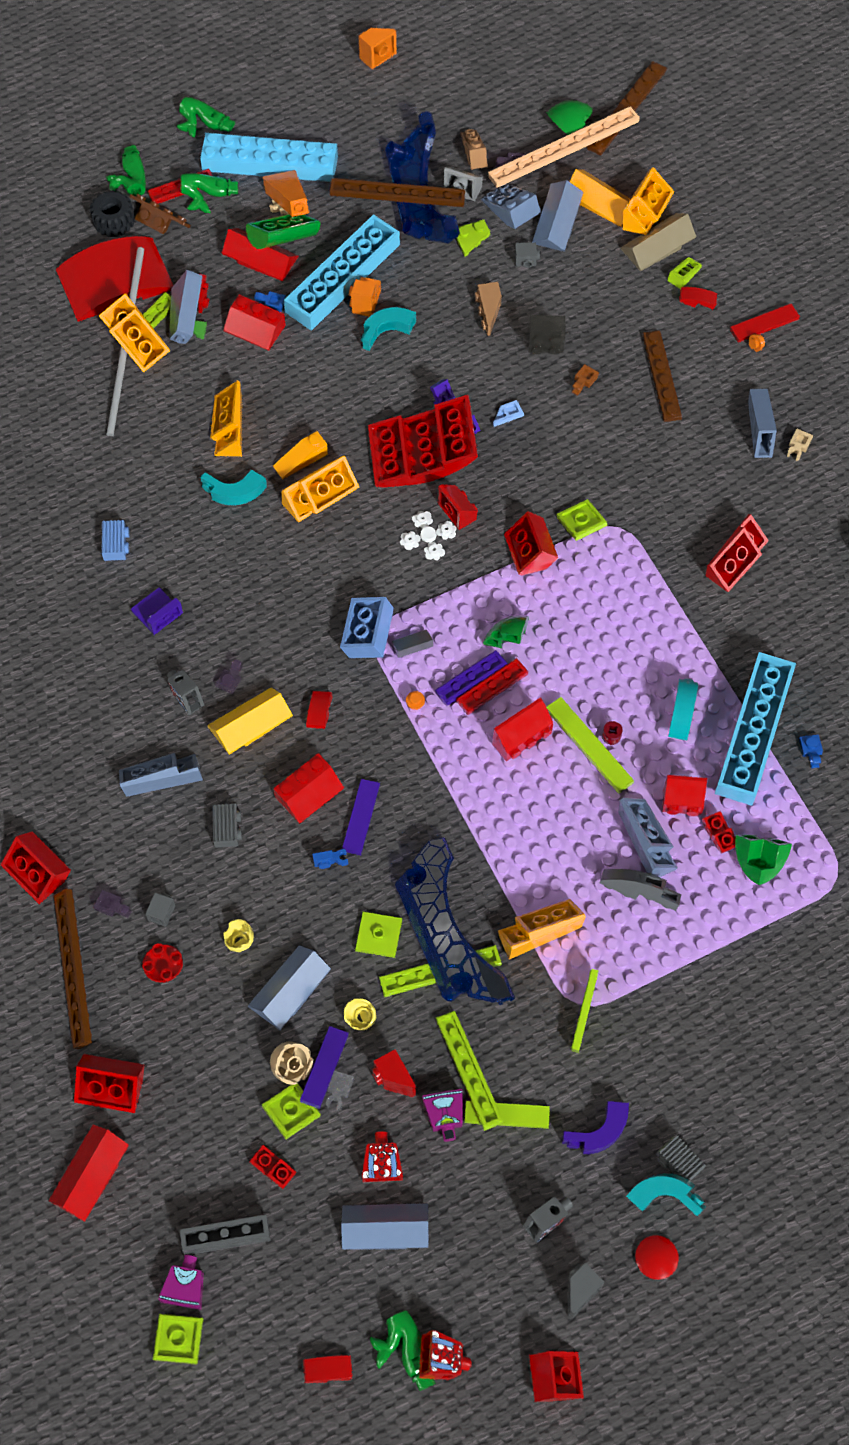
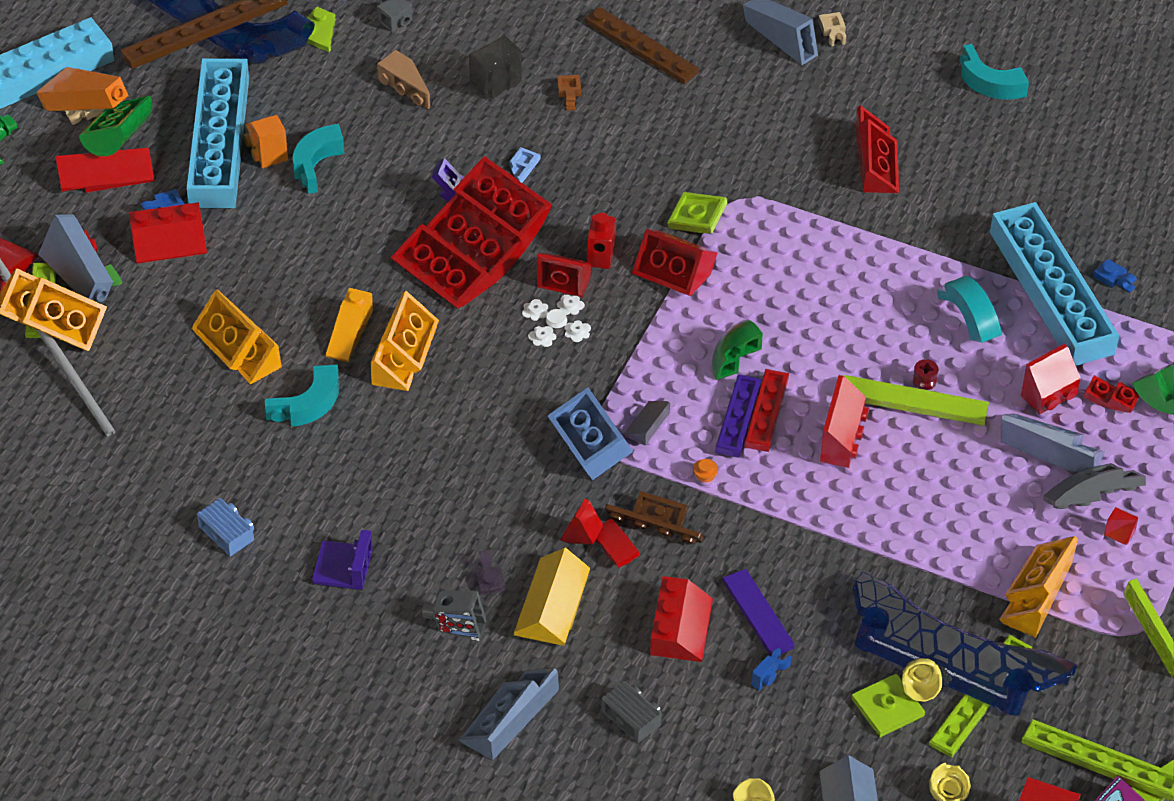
camera: 40 degrees left, 15 degrees down
(308, 685) = (583, 526): none -> red slope
(361, 709) = (658, 513): none -> reddish brown bracket
(406, 935) = (922, 680): none -> light yellow hair
(502, 497) = (604, 232): none -> red torso
(632, 926) = (1121, 526): none -> red slope

